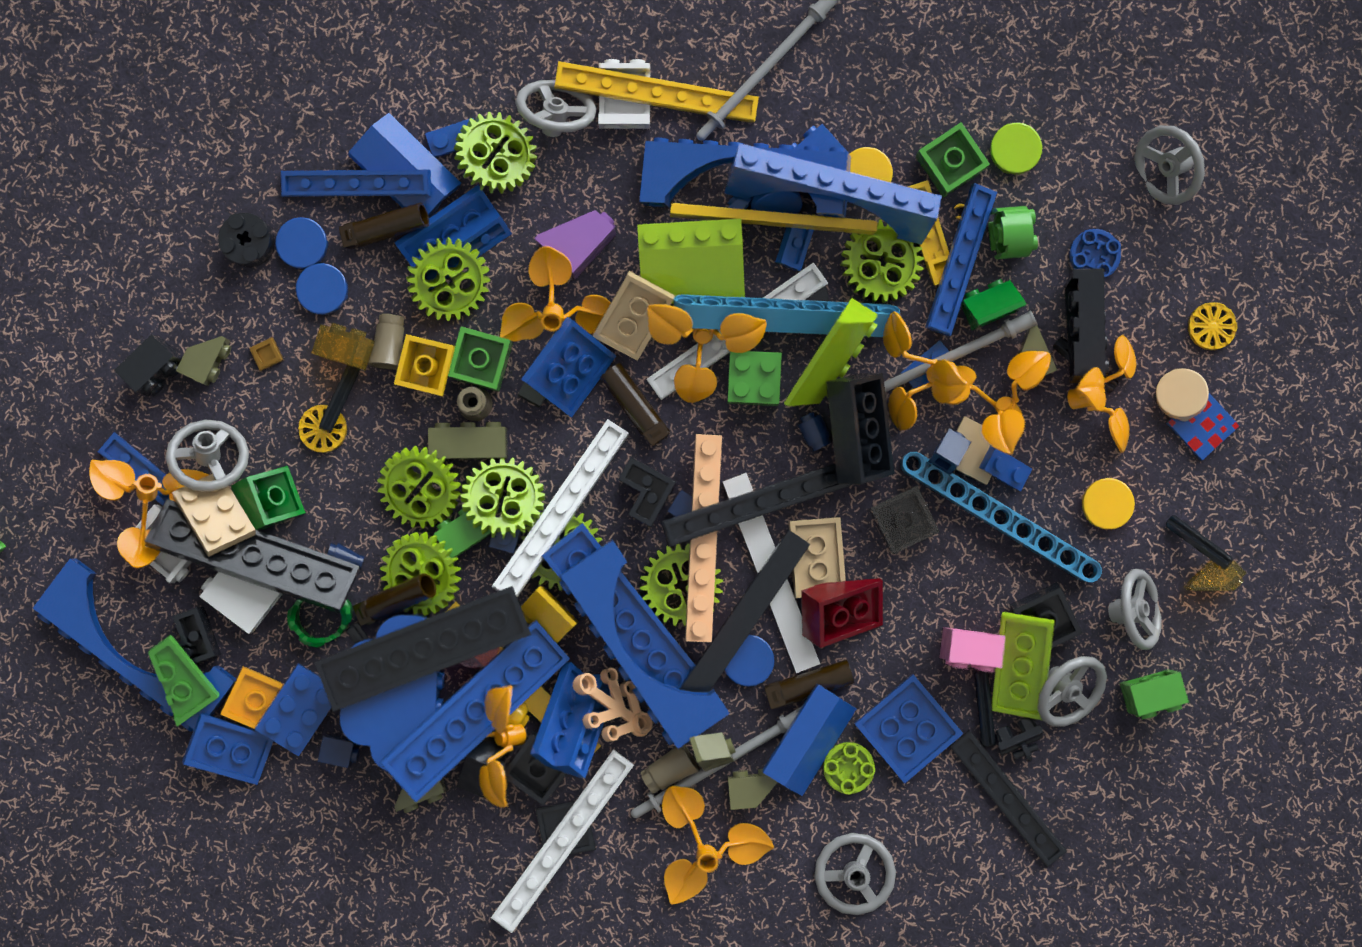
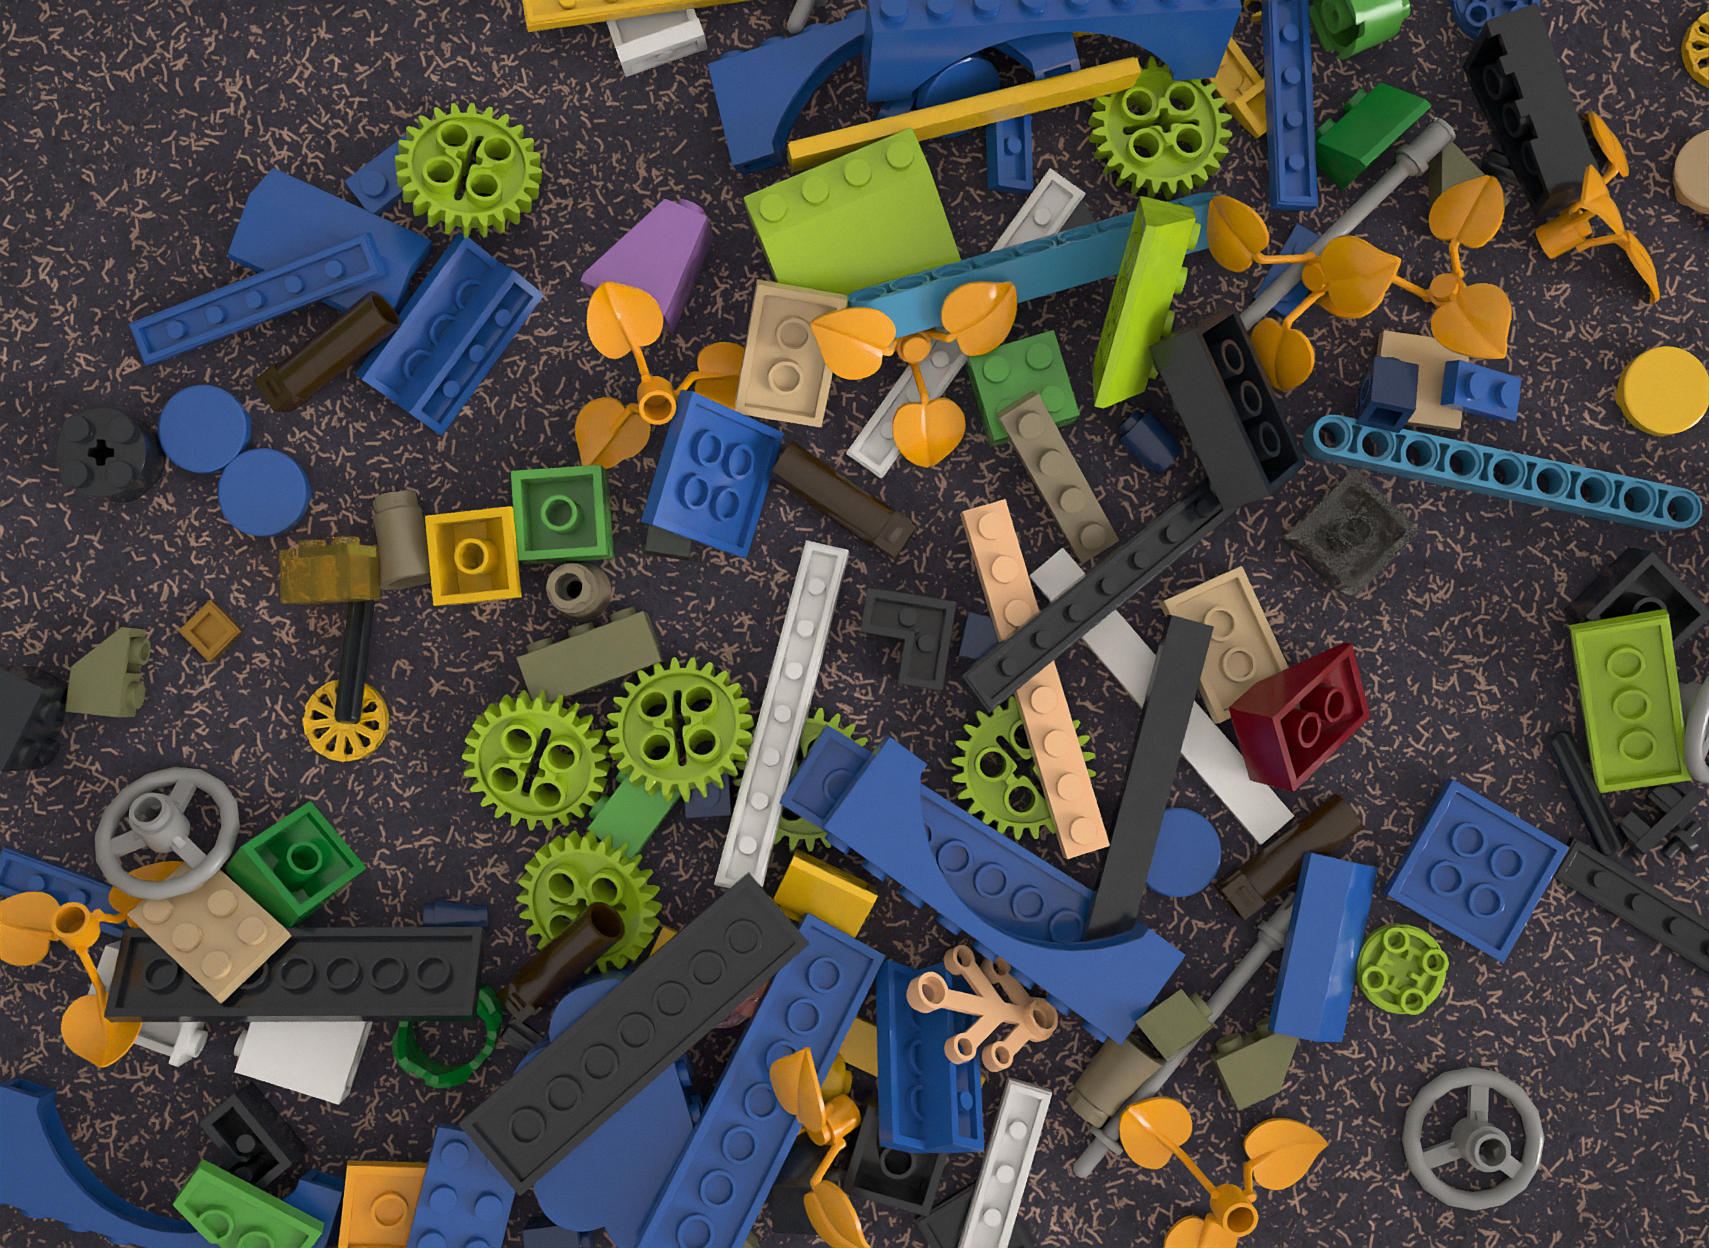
camera: 25 degrees left, 0 degrees up
(437, 259) = (433, 374): lime gear -> none
(555, 110) = (543, 69): light grey piece -> none
(755, 433) = (1057, 476): none -> dark tan plate
(972, 647) = (1545, 704): bright pink brick -> none

